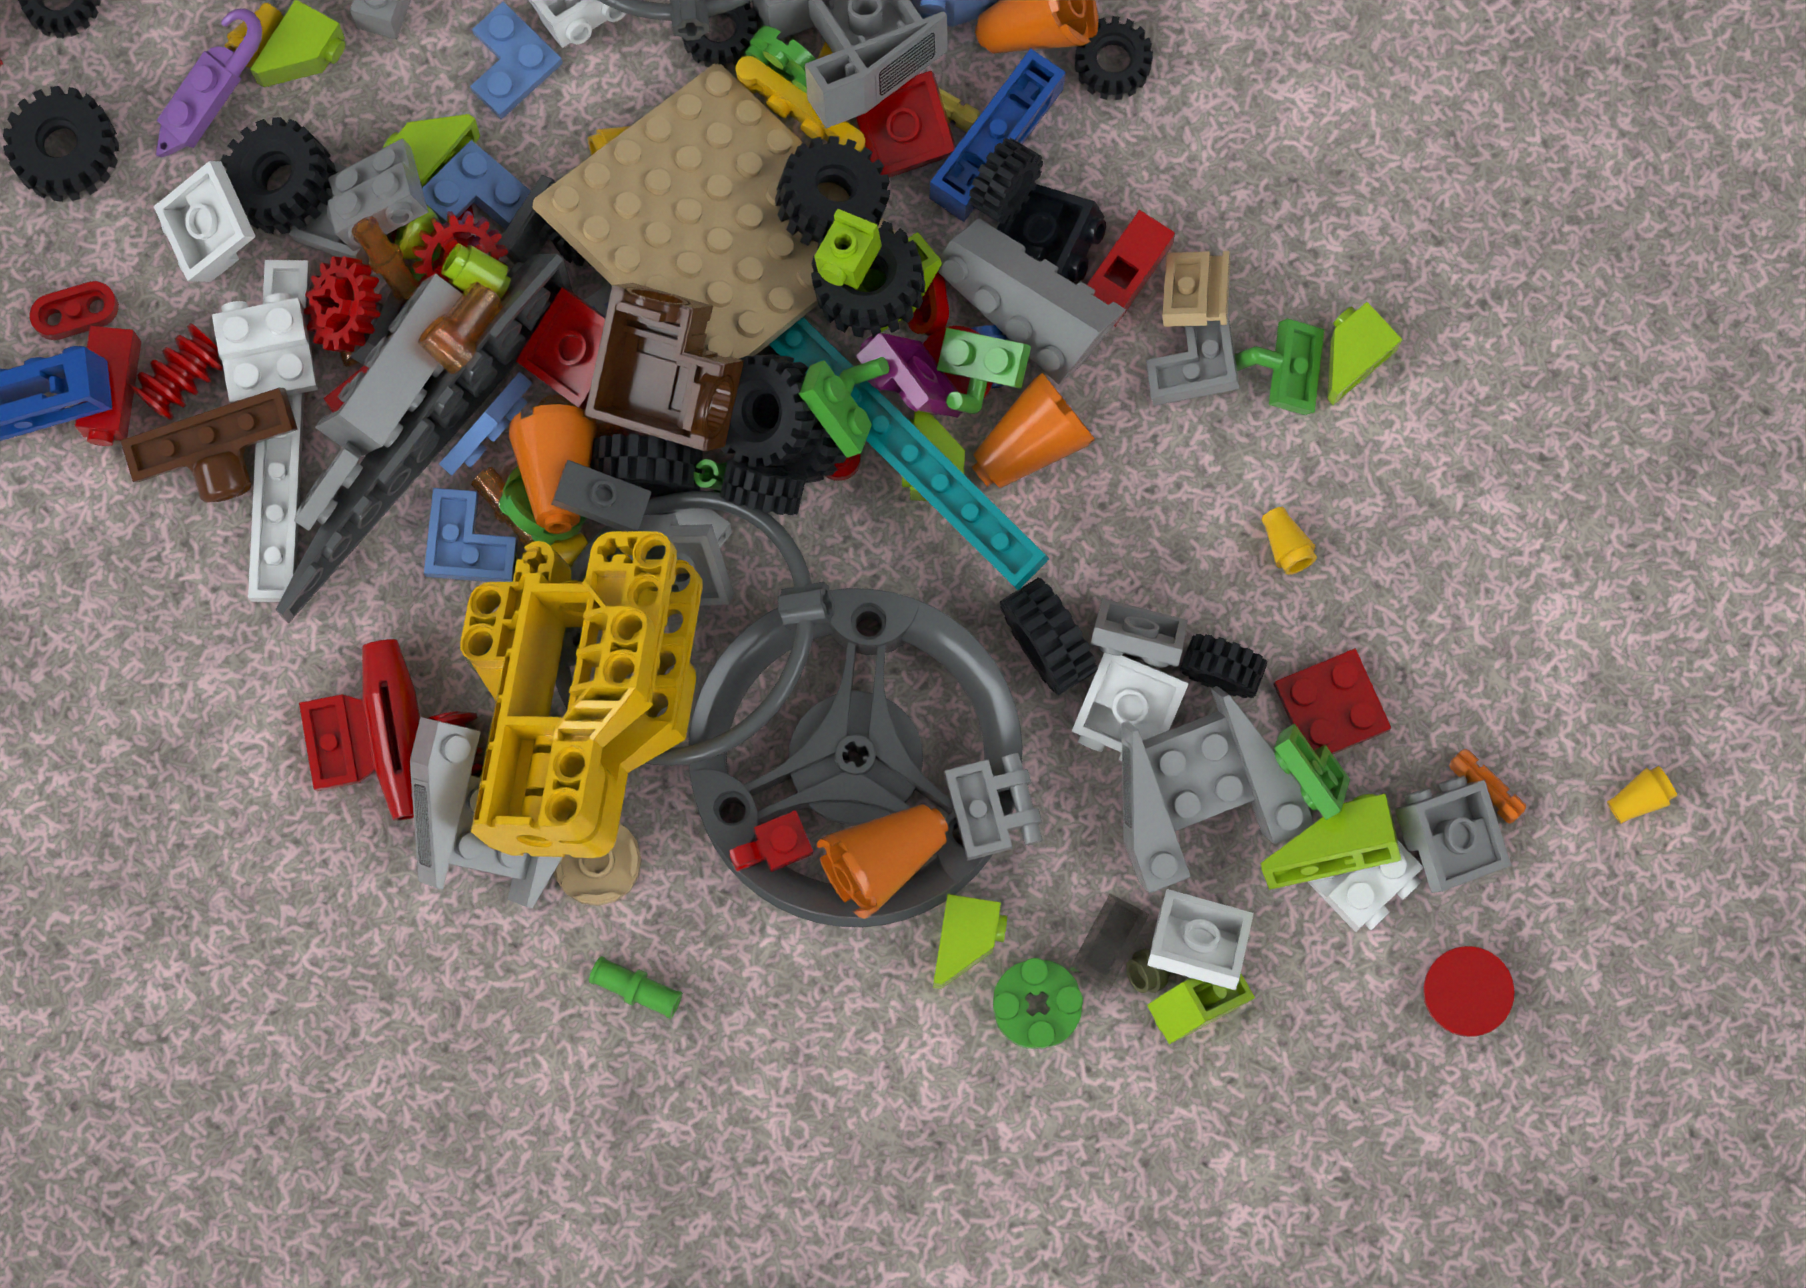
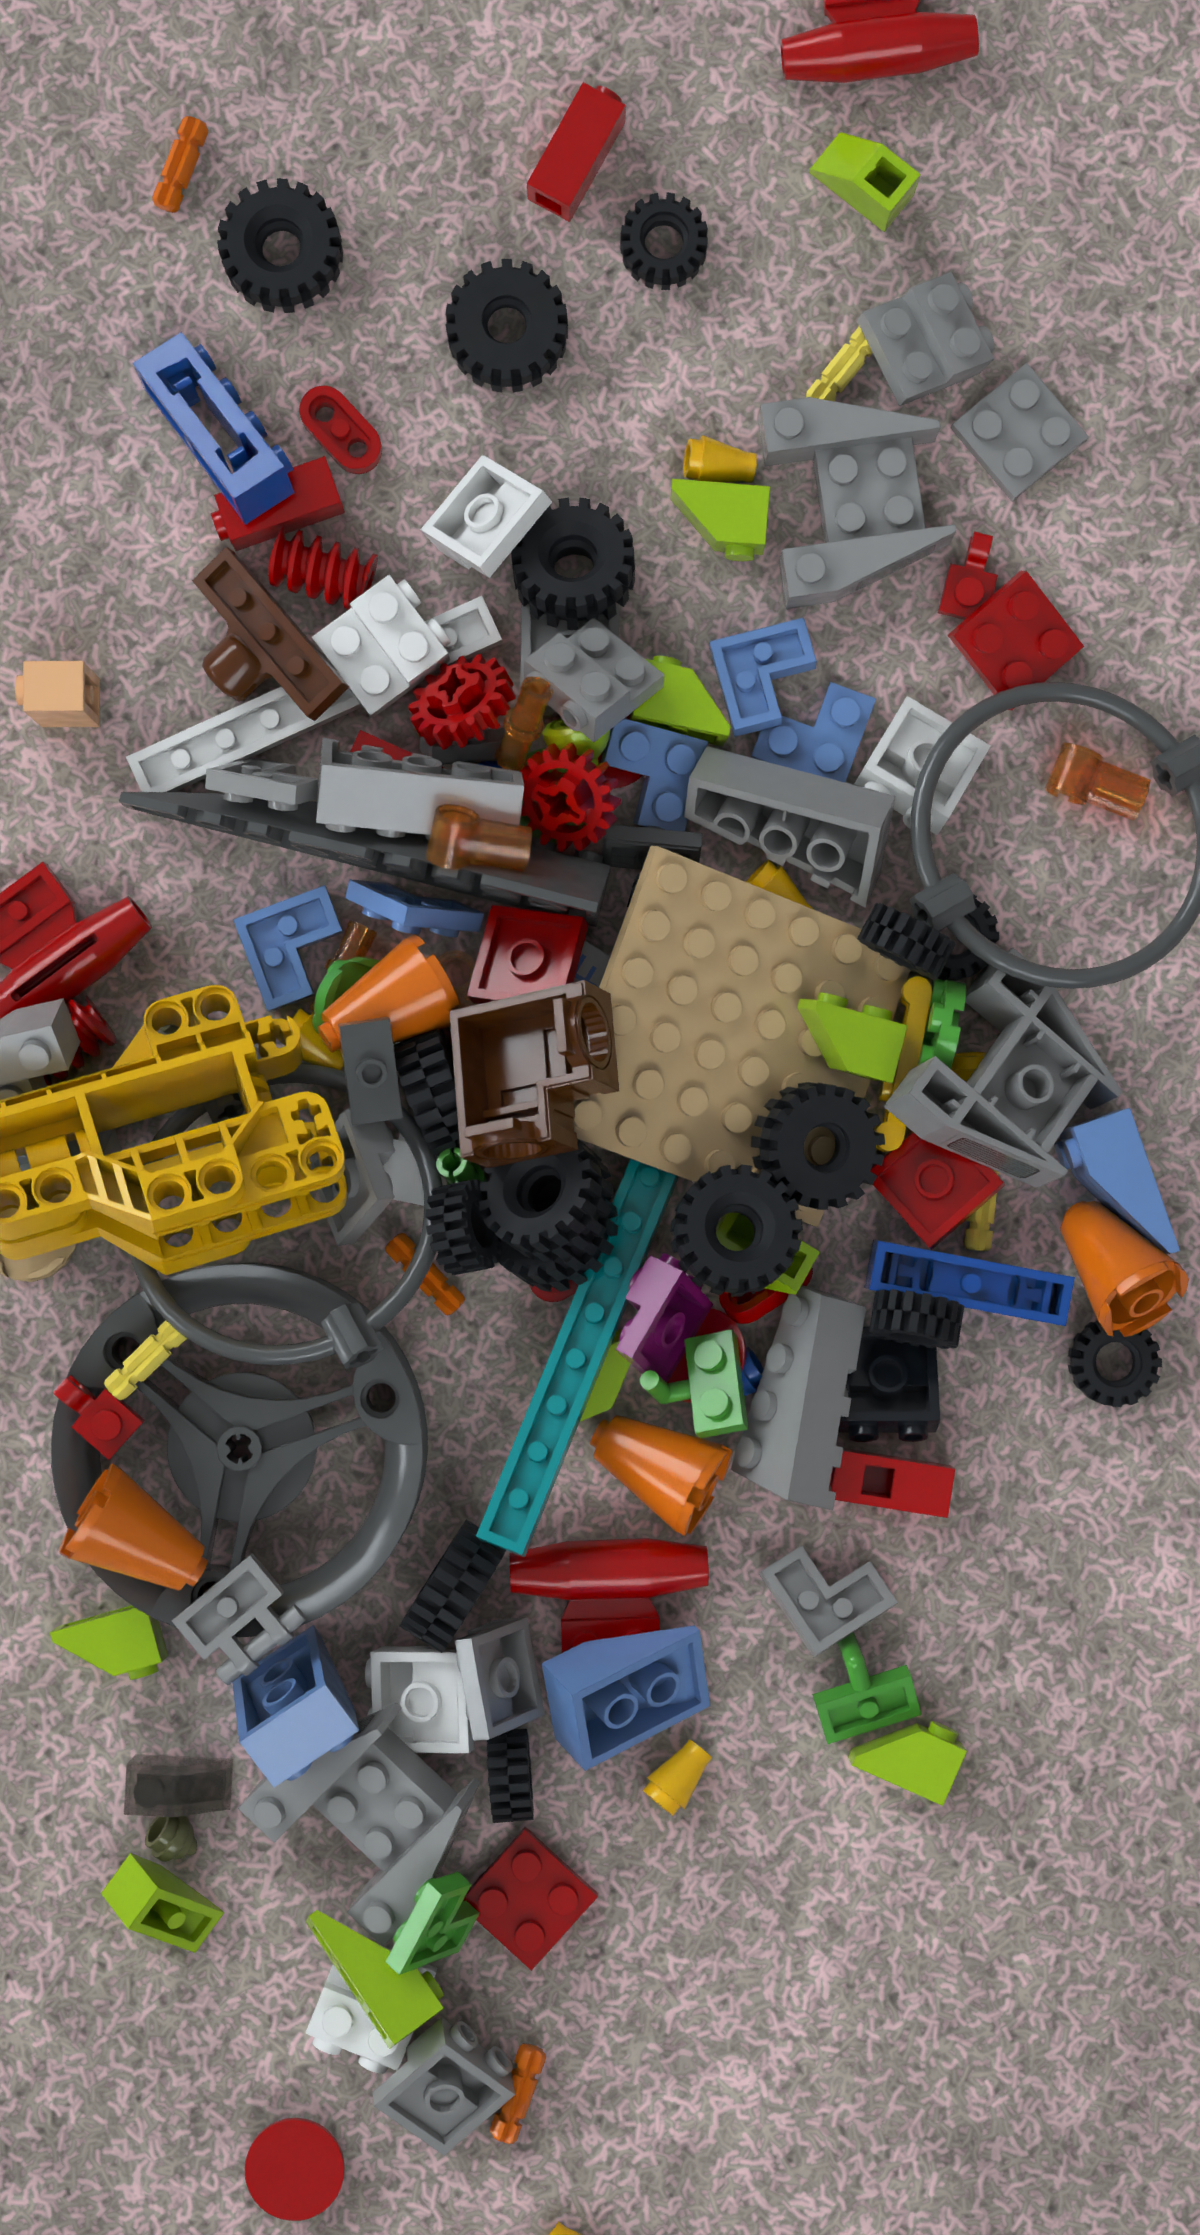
camera: 65 degrees right, 10 degrees up
(171, 621) = (59, 693): none -> light nougat brick
(206, 88) = (634, 444): medium lavender plate -> none
(429, 84) = (750, 662): none -> medium blue plate
(471, 265) = (552, 824): lime brick -> none
(566, 98) = (794, 817): none -> light grey wedge
(704, 51) = (906, 941): none -> black tyre
(746, 786) = (143, 1361): none -> light yellow axle
(758, 565) = (447, 1298): none -> orange axle
(762, 129) = (853, 1040): none -> lime slope
(835, 408) = (580, 1259): bright green plate -> none
(861, 247) = (730, 1215): lime brick -> none
(1011, 1008) = (62, 1754): bright green plate -> none
(1086, 803) = (293, 1708): none -> medium blue slope
(1111, 525) = (608, 1582): none -> red plate
(1196, 289) = (899, 1565): tan plate -> none
(1196, 545) = (624, 1690): none -> medium blue slope
(1200, 939) = (215, 1881): white plate -> none

